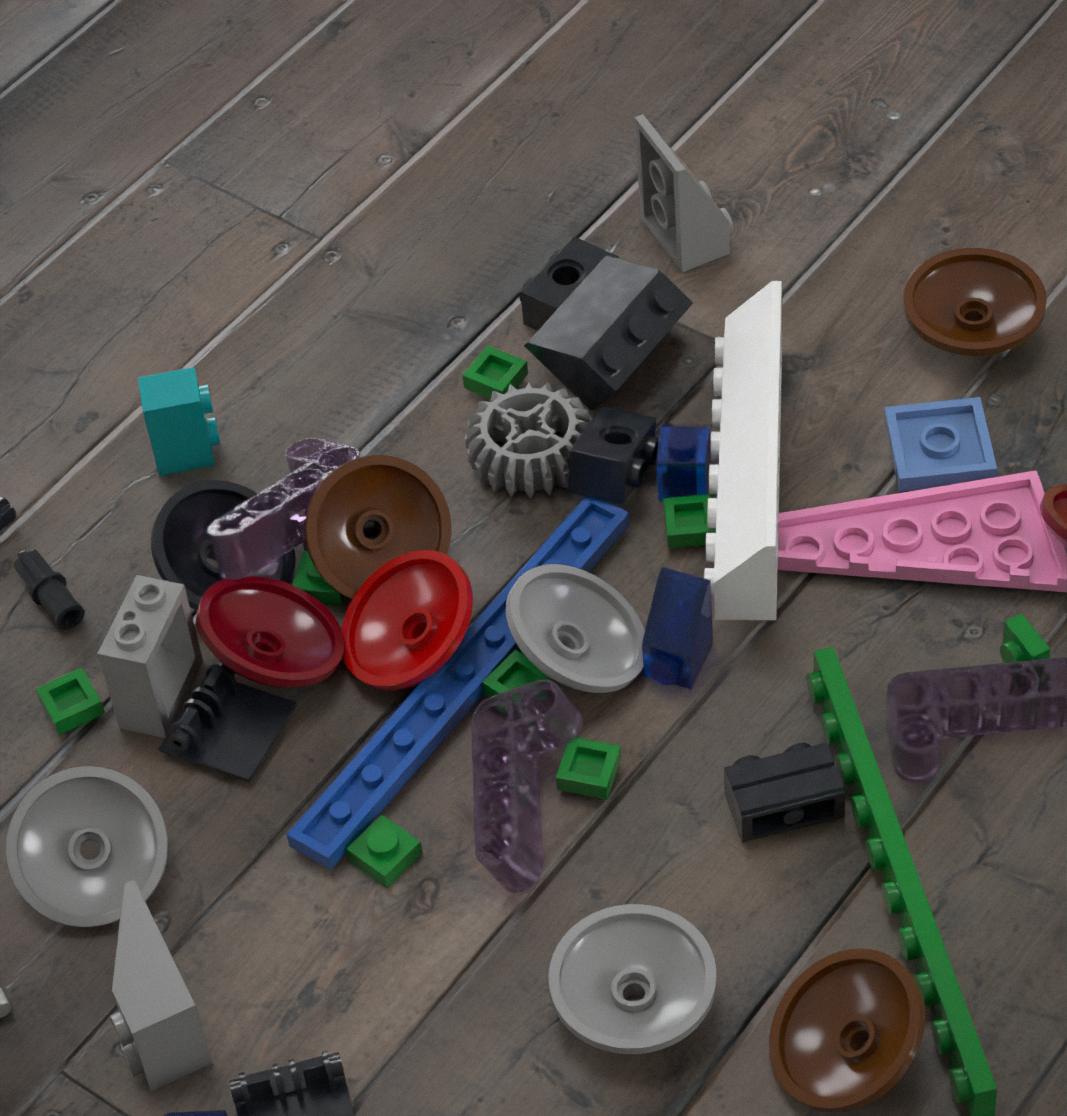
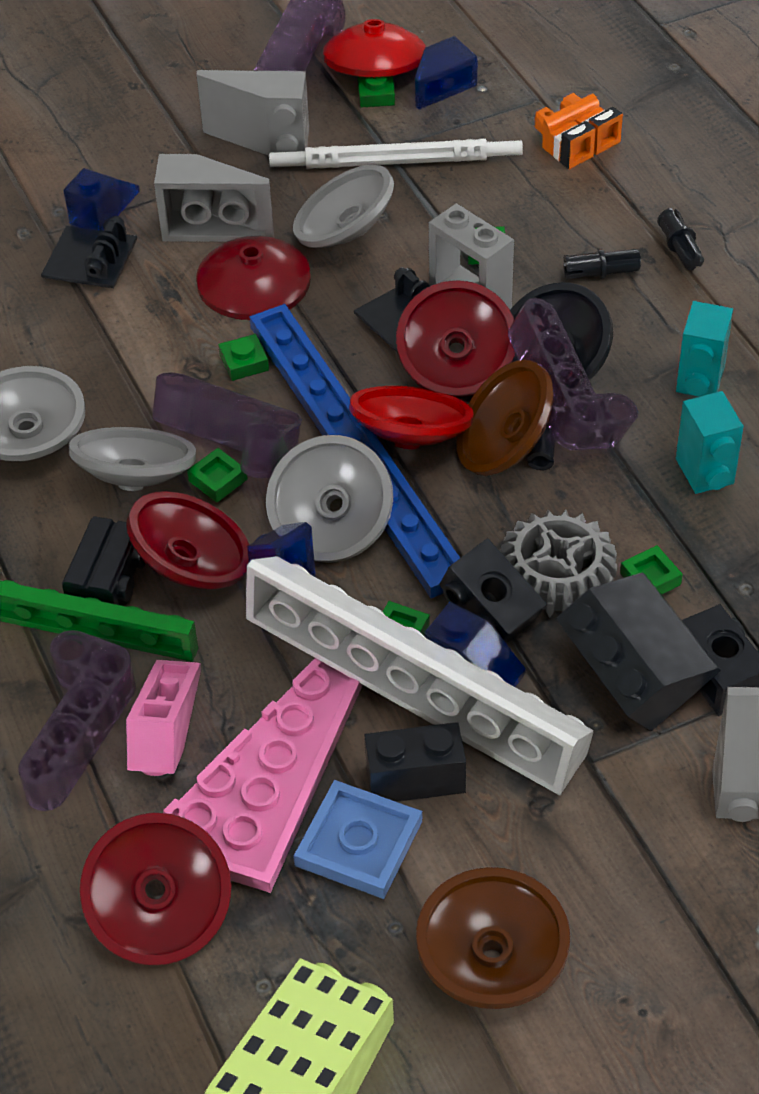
camera: 115 degrees right, 0 degrees up
(242, 940) = (252, 276): none -> dark red dish
(313, 370) = (709, 442): none -> teal brick
(609, 821) = (132, 455): none -> light grey dish
(712, 717) = (188, 540): none -> dark red dish
(839, 433) = (416, 762): none -> black brick
(929, 635) = (161, 717): none -> bright pink slope
(1022, 641) = (101, 774): green plate -> none

